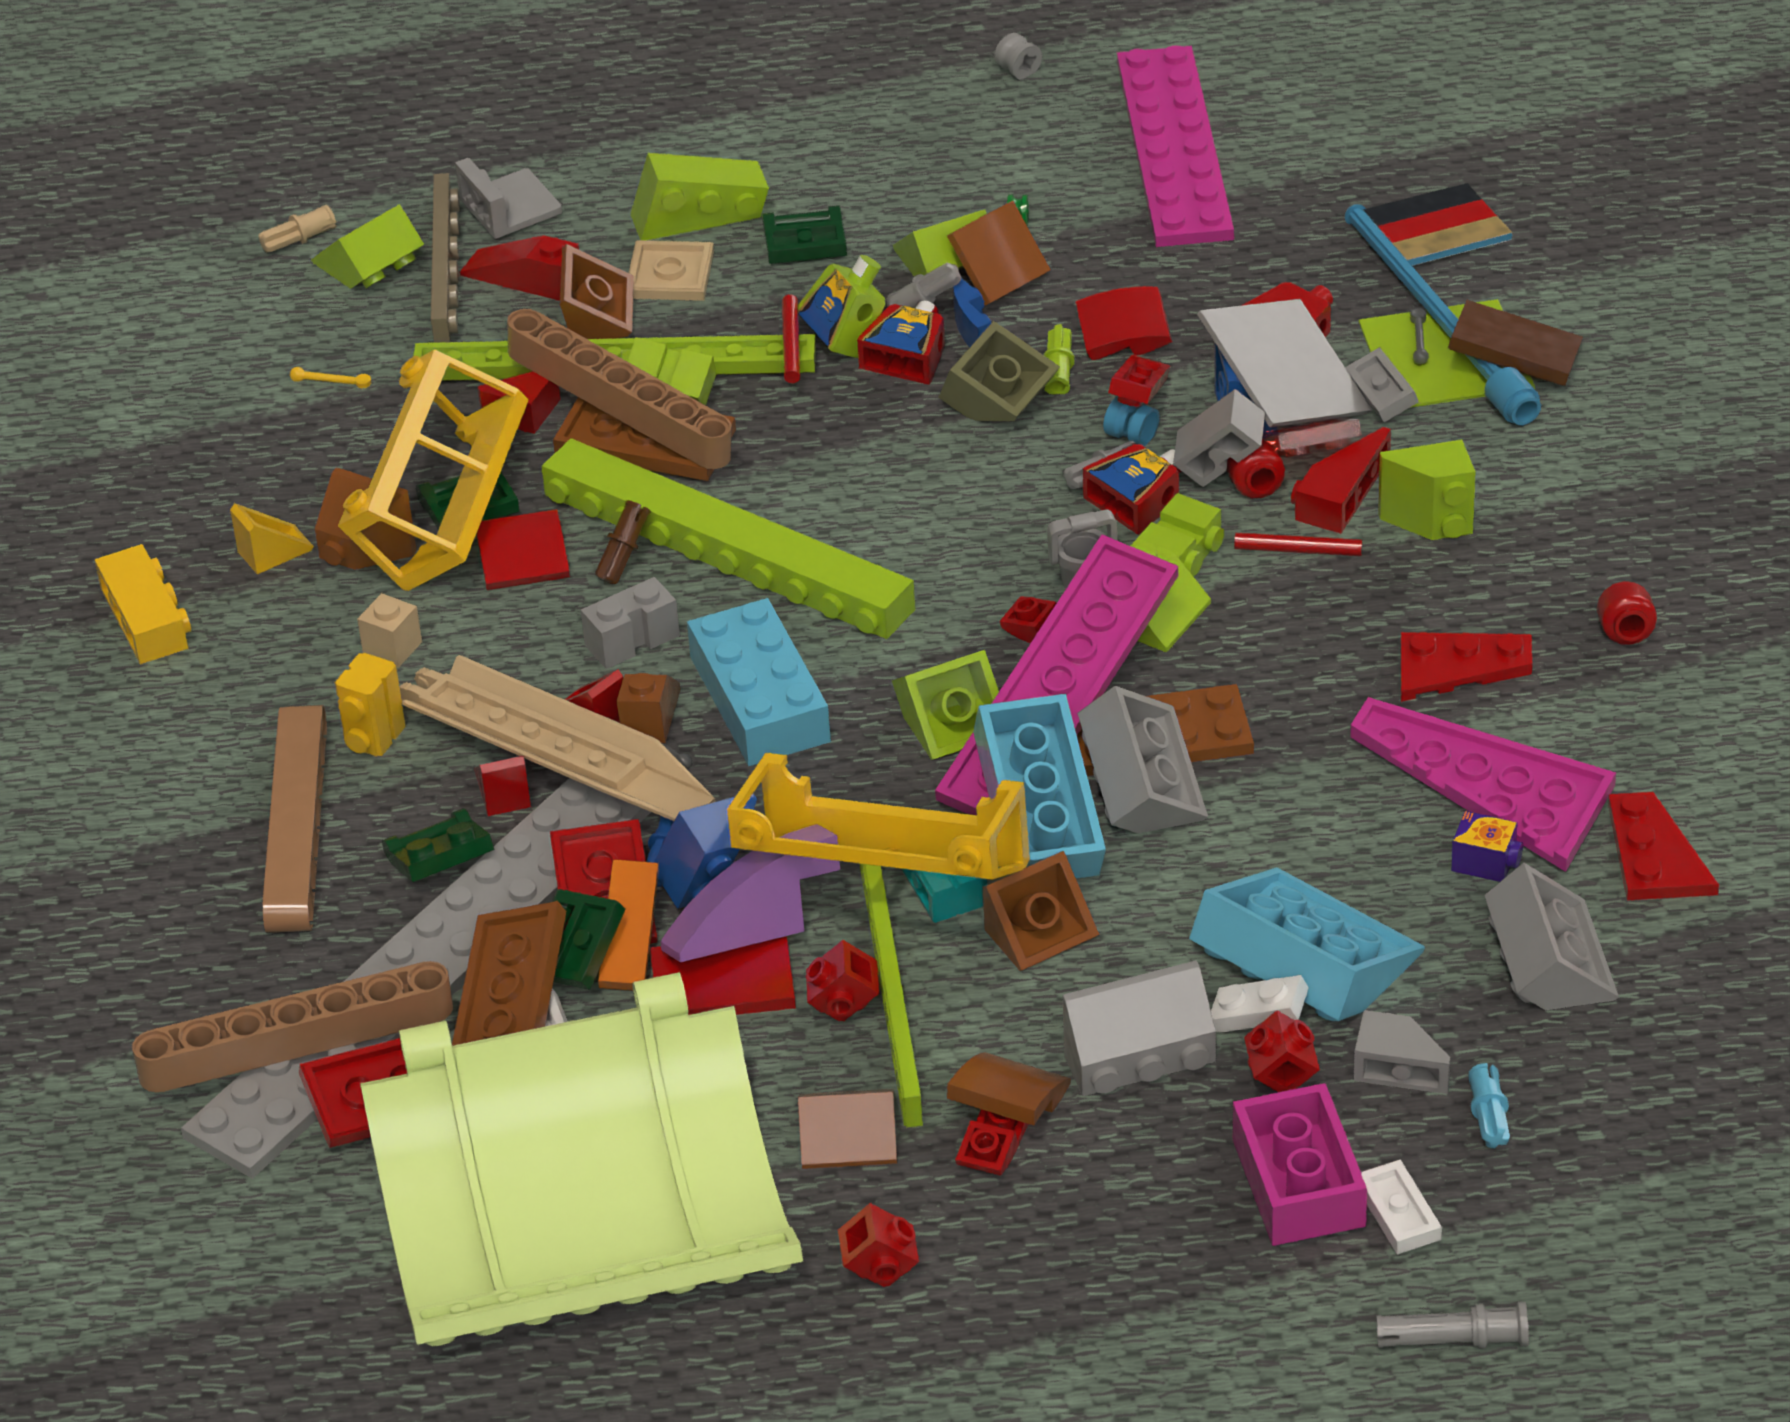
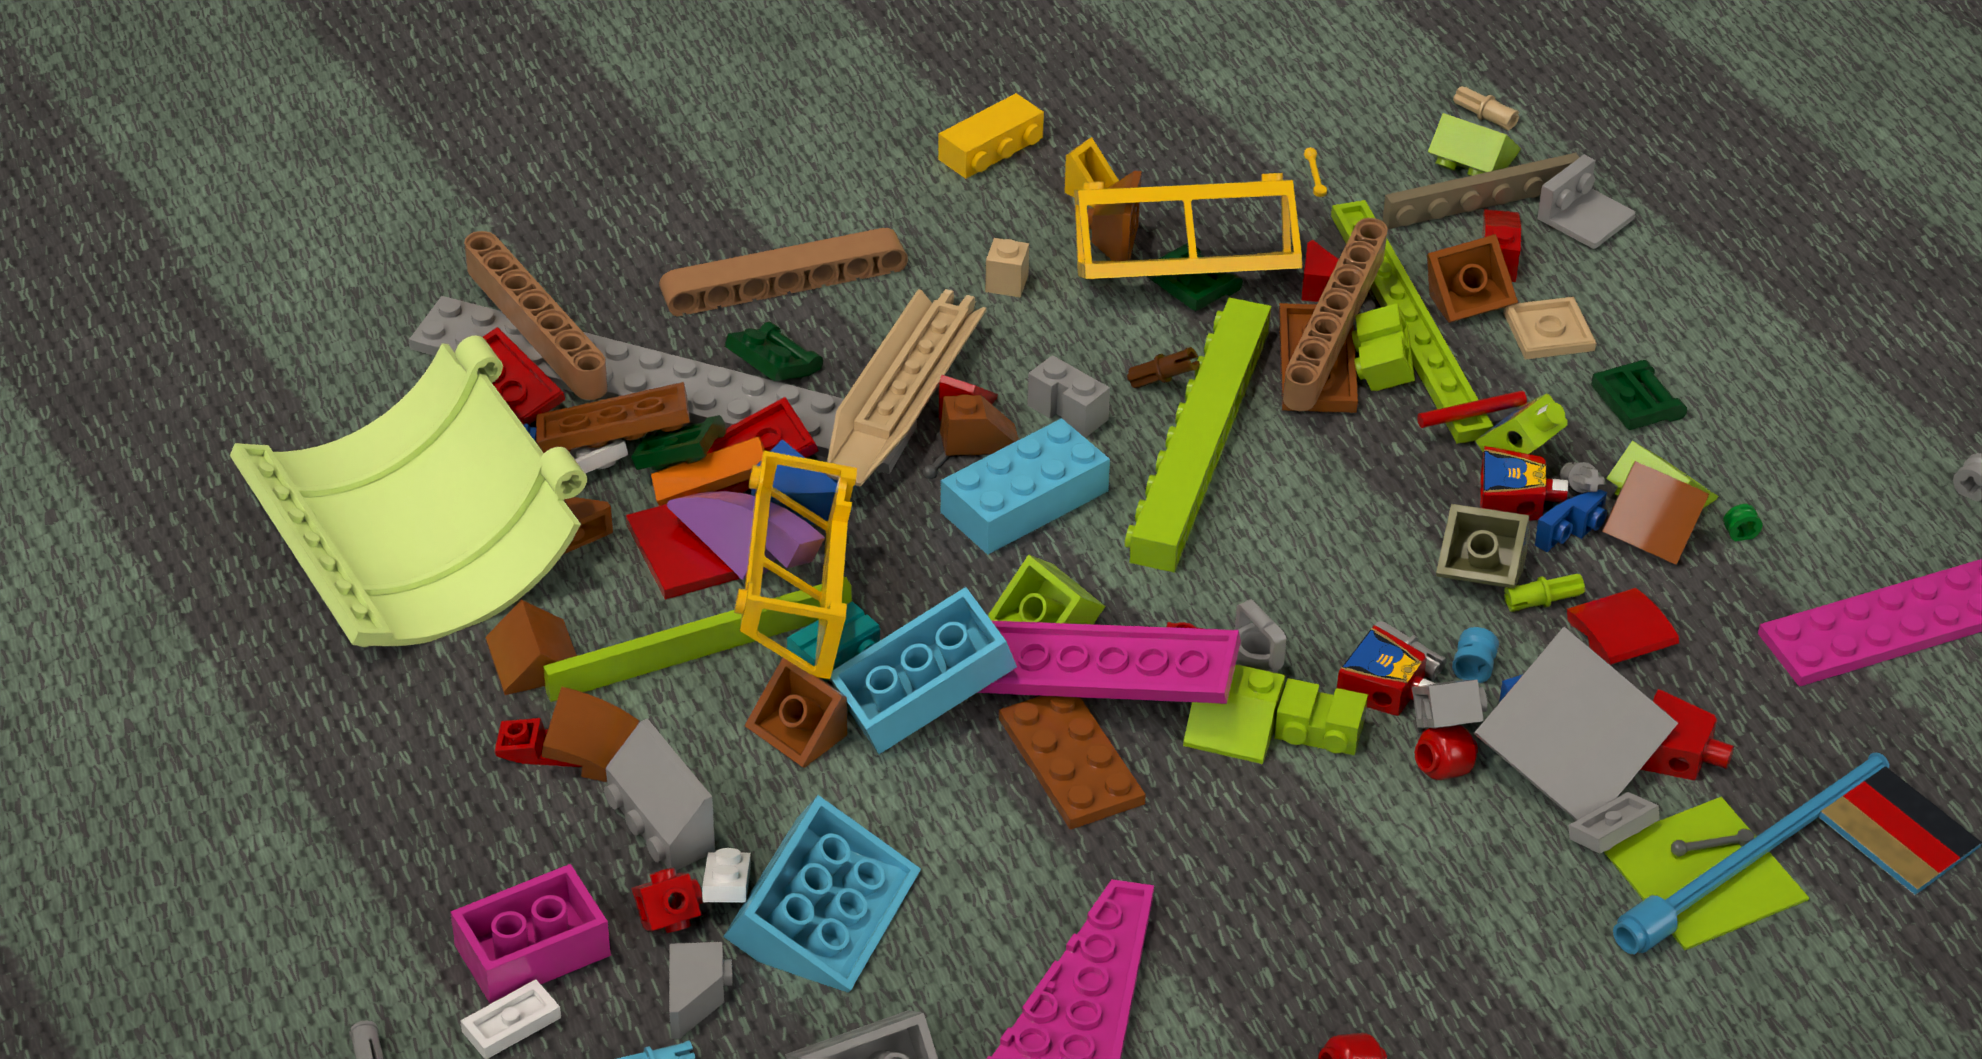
camera: 70 degrees right, 0 degrees up
(370, 704) = (901, 268): yellow brick -> none
(503, 785) = (847, 363): red slope -> none
(522, 549) = (1144, 320): red slope -> none
(695, 194) = (1644, 311): lime wedge -> none
(842, 981) = (689, 599): red brick -> none
(878, 1245) = (400, 688): red brick -> none
(1138, 380) = (1505, 634): red plate -> none
(1141, 762) = (999, 741): light grey slope -> none
(1298, 544) = (1365, 808): red bar -> none
(1322, 434) = (1500, 780): clear red plate -> none
(1340, 483) = (1456, 818): red slope -> none
(1428, 489) = (1454, 877): lime slope -> none
(1457, 659) = (1246, 950): red wing -> none
(1485, 847) = (981, 1004): dark purple brick -> none
(1515, 342) = (1724, 911): reddish brown tile -> none

